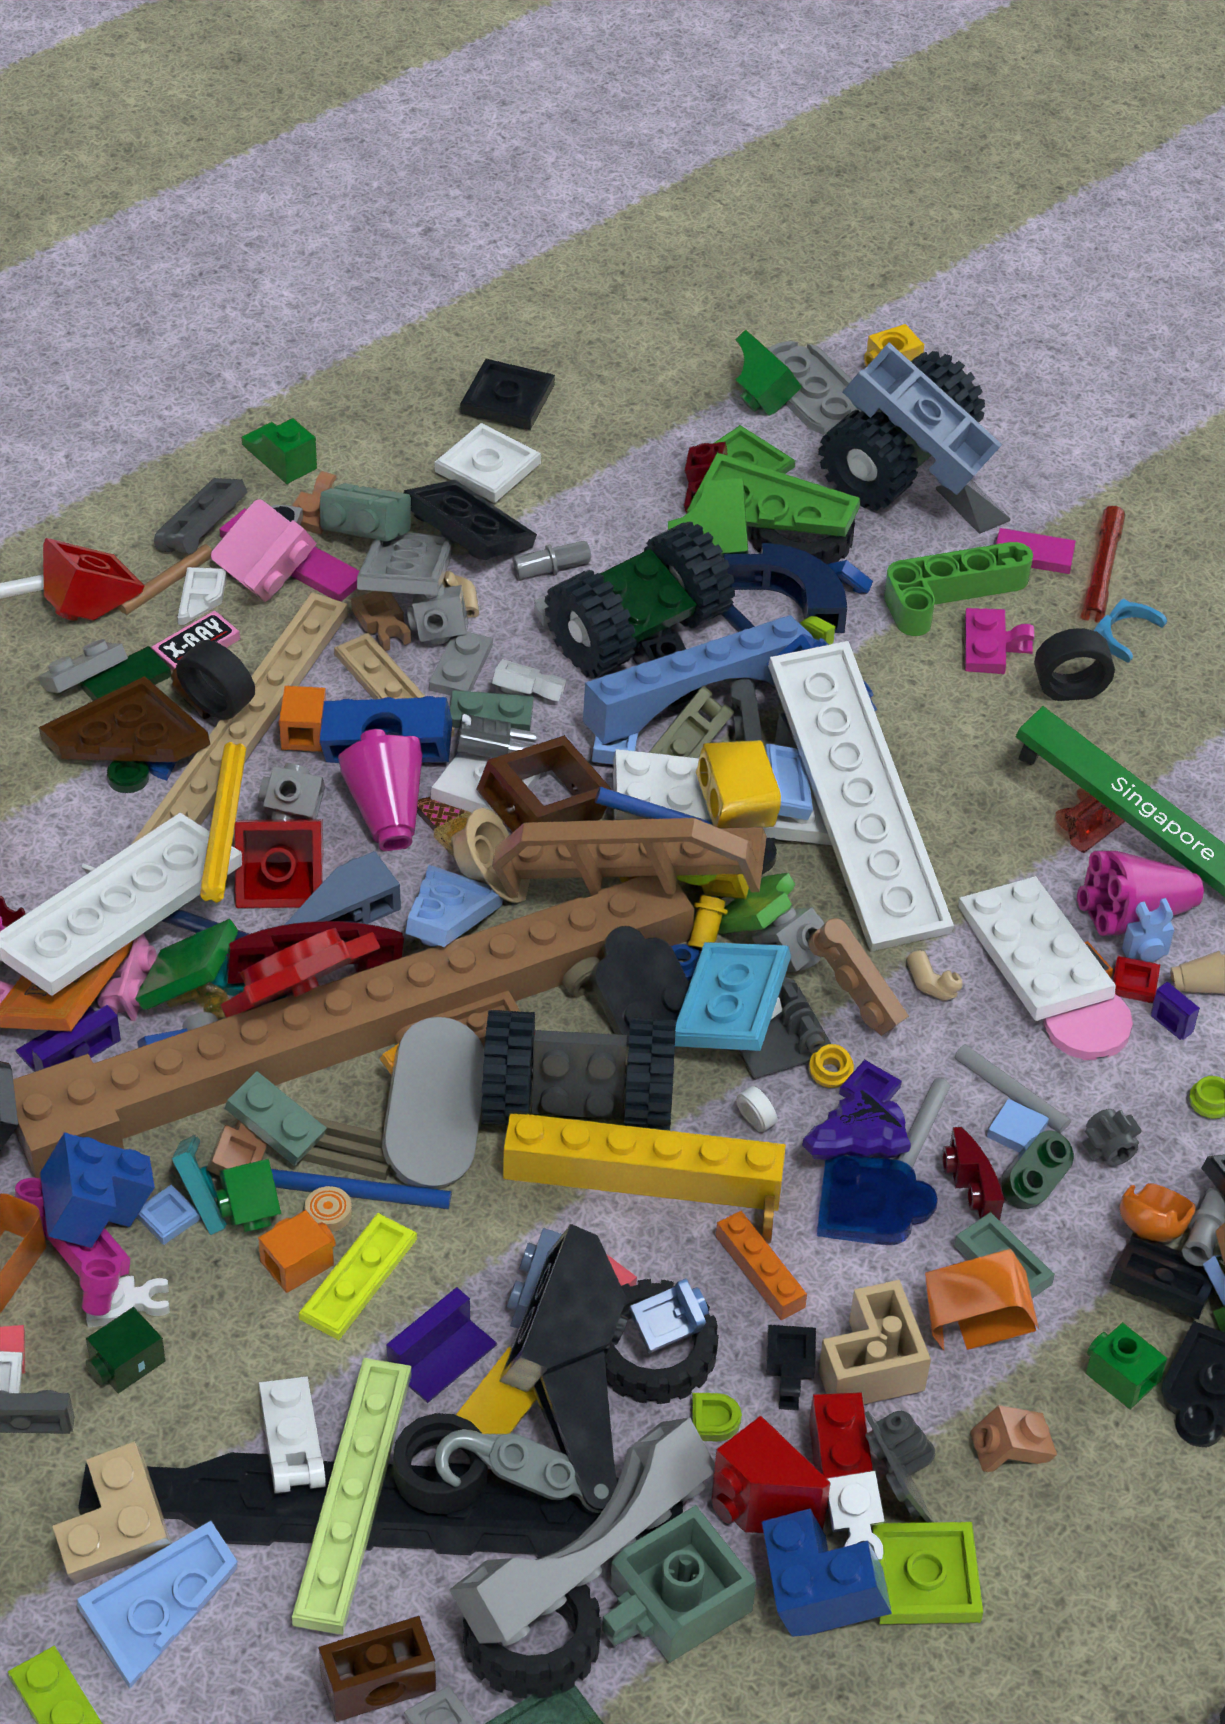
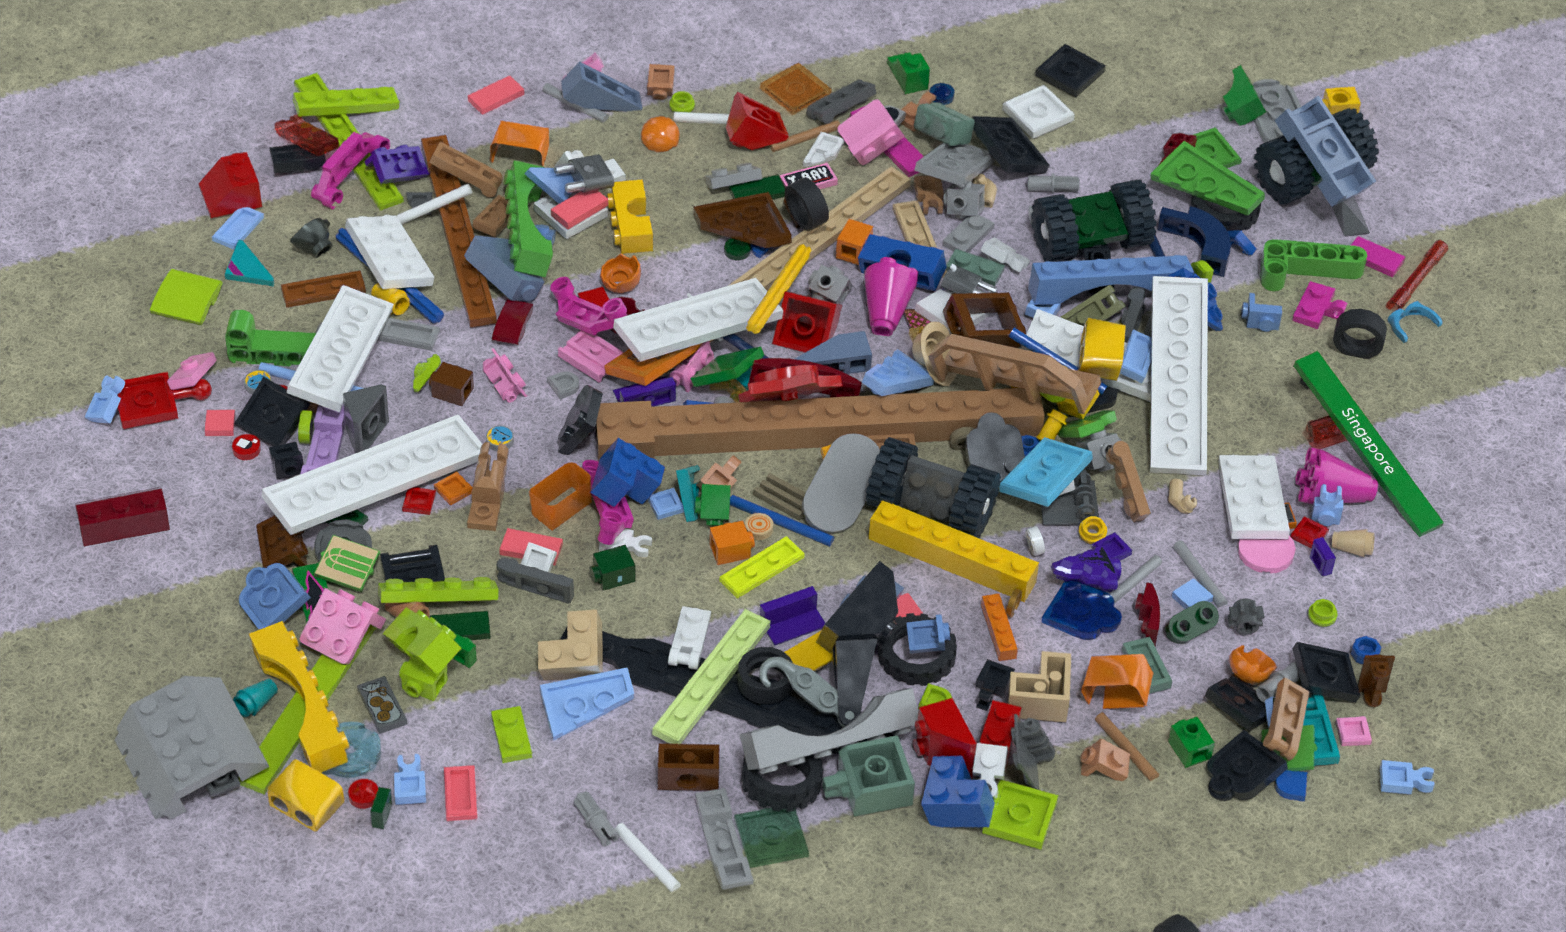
camera: 20 degrees right, 0 degrees up
(124, 514) = (795, 88): none -> clear orange tile
(275, 1118) = (745, 466): sand green plate -> none
(343, 466) = (944, 93): none -> clear blue tile
(721, 514) = (1168, 183): bright green tile -> none
(925, 675) = (1260, 315): none -> medium blue bracket
(1030, 1401) = (1123, 743): none -> medium nougat bar

